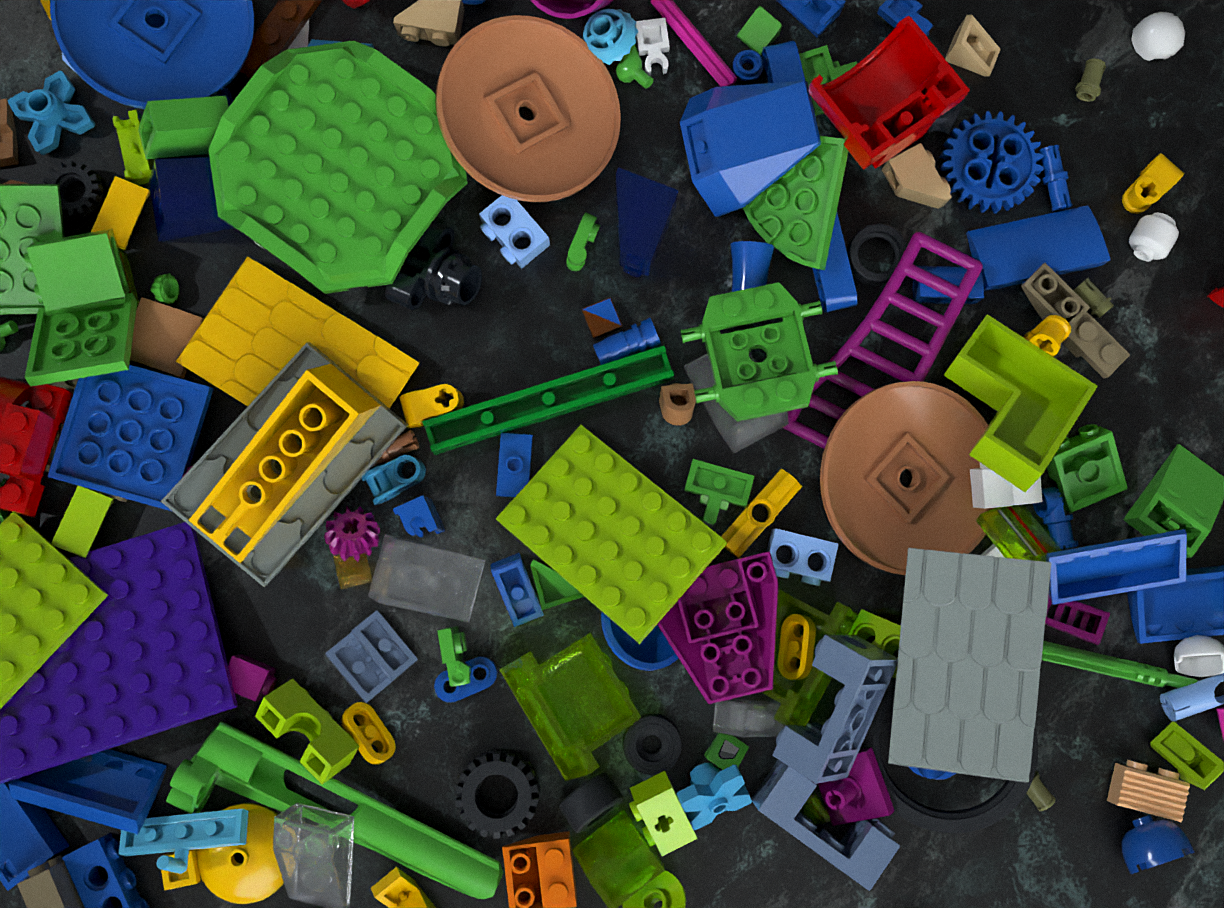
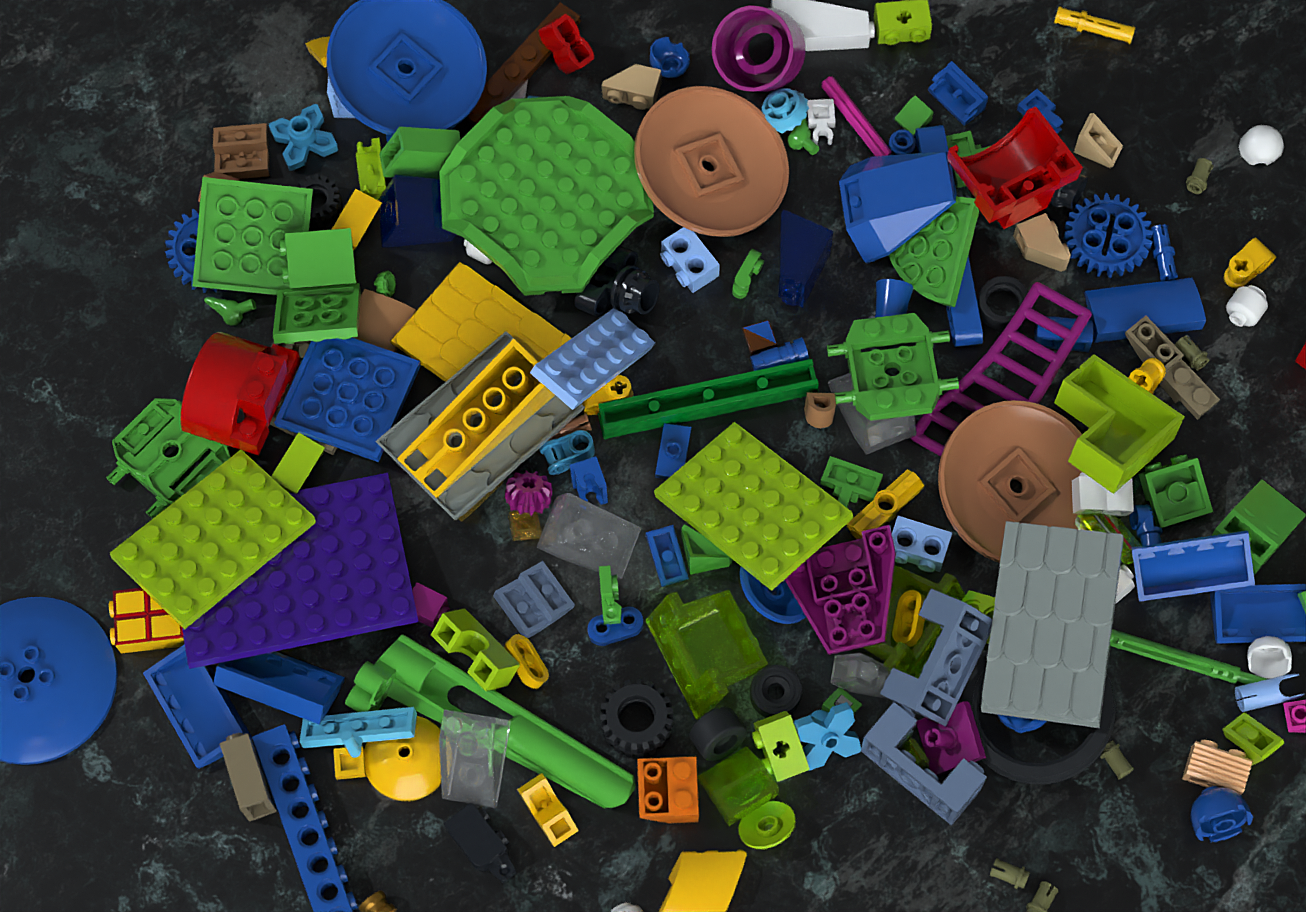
camera: 10 degrees right, 15 degrees down
(406, 377) = (592, 358): none -> light blue plate
(1098, 628) = (1167, 631): magenta slope -> none

